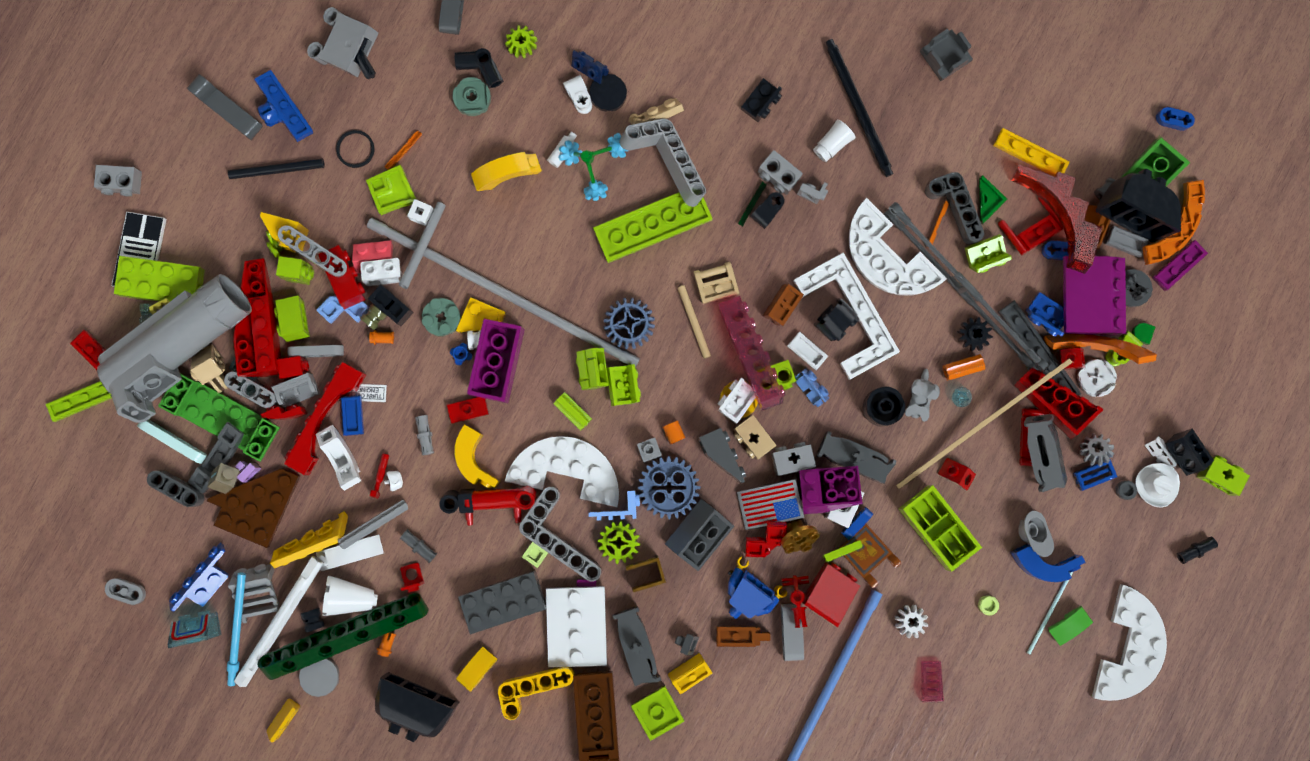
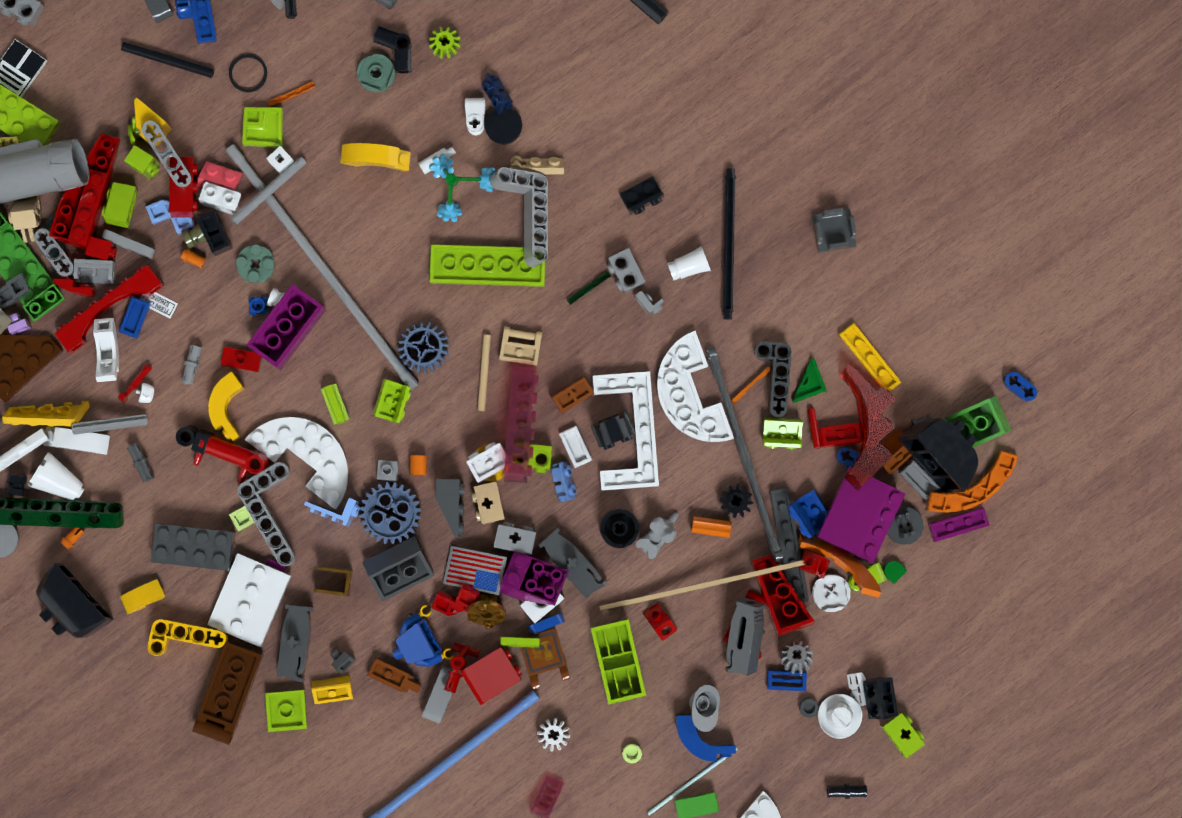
camera: 25 degrees right, 0 degrees up
(412, 585) = (119, 495): red bracket -> none
(475, 314) = (287, 275): yellow wing -> none
(592, 369) = (370, 373): lime brick -> none
(618, 551) = (317, 549): lime gear -> none
(766, 211) = (596, 303): black piece -> none
(961, 397) = (697, 553): clear light blue tile -> none

